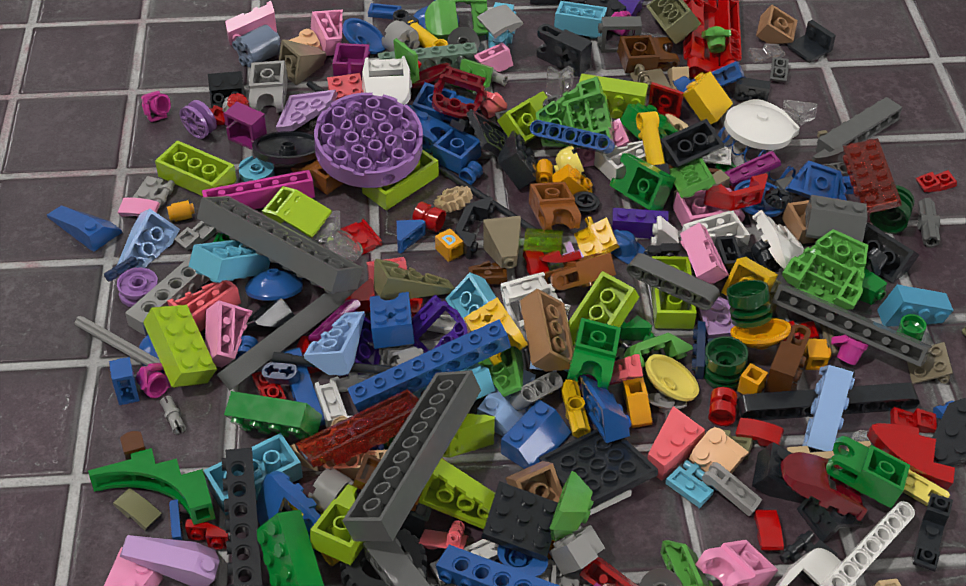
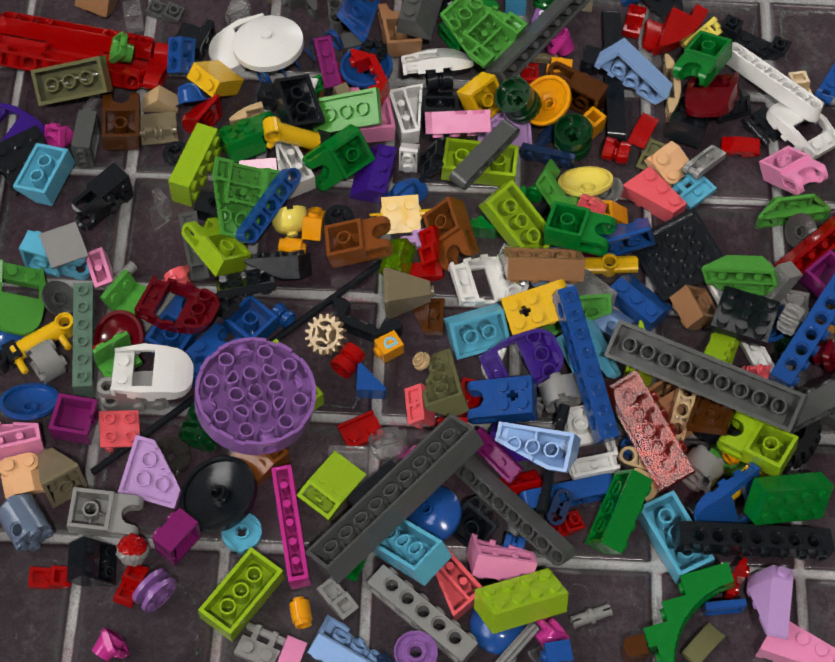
camera: 85 degrees left, 15 degrees up
(216, 66) = (48, 578): none -> red slope
(437, 270) = (421, 361): none -> tan plate
(521, 558) = (790, 319): none -> light grey gear

